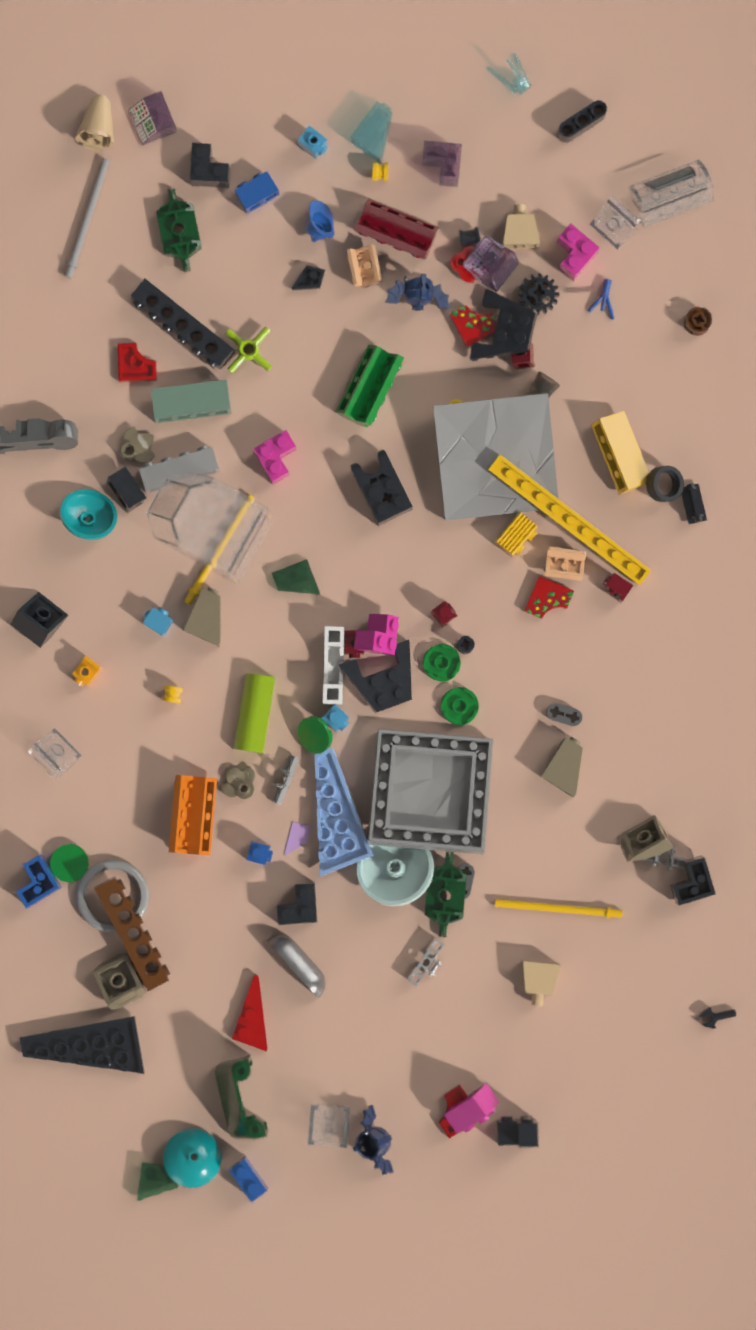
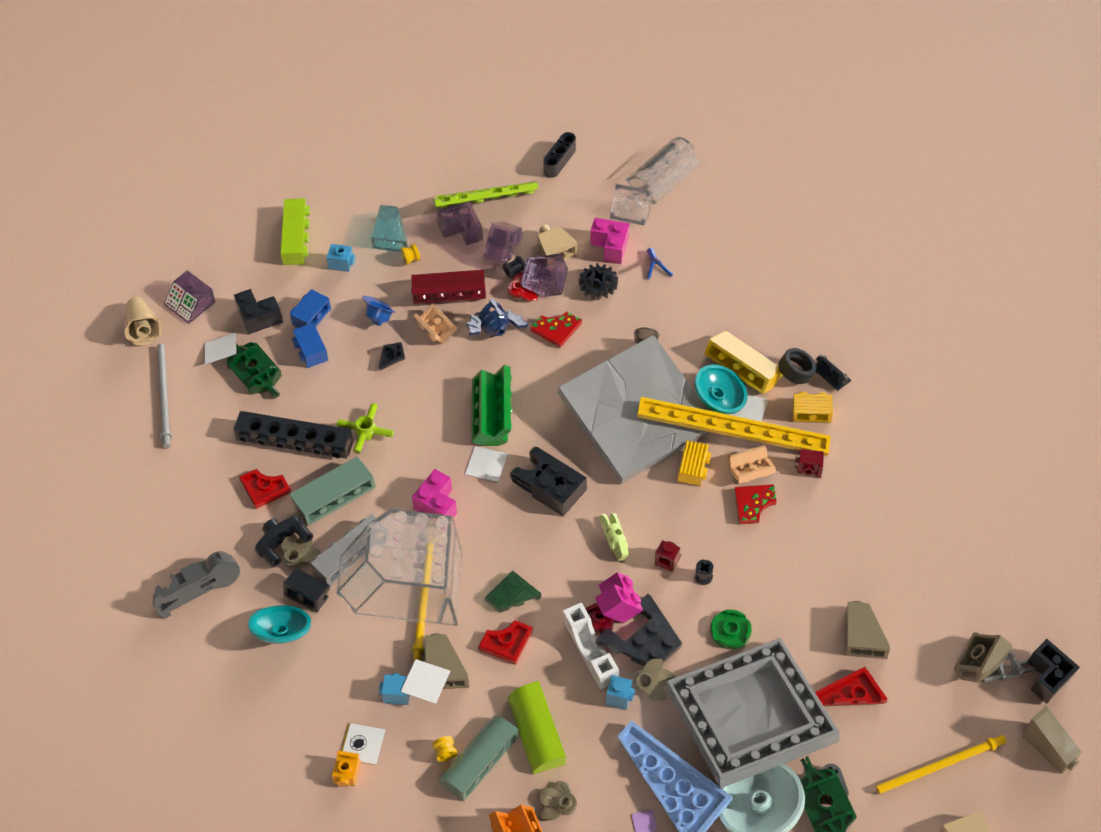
camera: 25 degrees left, 30 degrees down
(39, 619) = (273, 744): black slope -> none
(111, 652) = (364, 741): none -> white sticker
(123, 421) = (275, 535): none -> black connector
(157, 193) = (220, 348): none -> white sticker
(183, 630) = (425, 681): none -> white sticker
(196, 713) = (479, 757): none -> sand green brick
(240, 231) = (310, 345): none -> blue brick
(270, 623) = (506, 643): none -> red tile
(283, 87) = (294, 231): none -> lime brick
(284, 785) = (602, 781): light grey piece -> none
(314, 734) = (607, 715): green tile -> none
(338, 438) = (486, 464): none -> white sticker
(372, 721) = (656, 679): none -> dark tan plate
(407, 579) = (614, 536): none -> yellowish green hinge
(441, 662) = (690, 600): green tile -> none
(465, 132) = (478, 195): none -> lime wing
(472, 202) = (500, 241): none -> clear purple brick
(512, 331) = (592, 310): black wing -> none
(521, 82) = (493, 150): clear light blue plant -> none
(524, 361) = (612, 327): dark red brick -> none
(528, 812) = (853, 689): none -> red wing
(565, 710) = (832, 589): dark grey beam -> none
(590, 478) = (720, 389): none -> teal dish
(598, 499) = (753, 409): none -> white sticker
(653, 531) = (812, 407): none -> yellow brick
(655, 940) = (1052, 741): none -> dark tan slope
(698, 321) = (745, 244): reddish brown wheel -> none

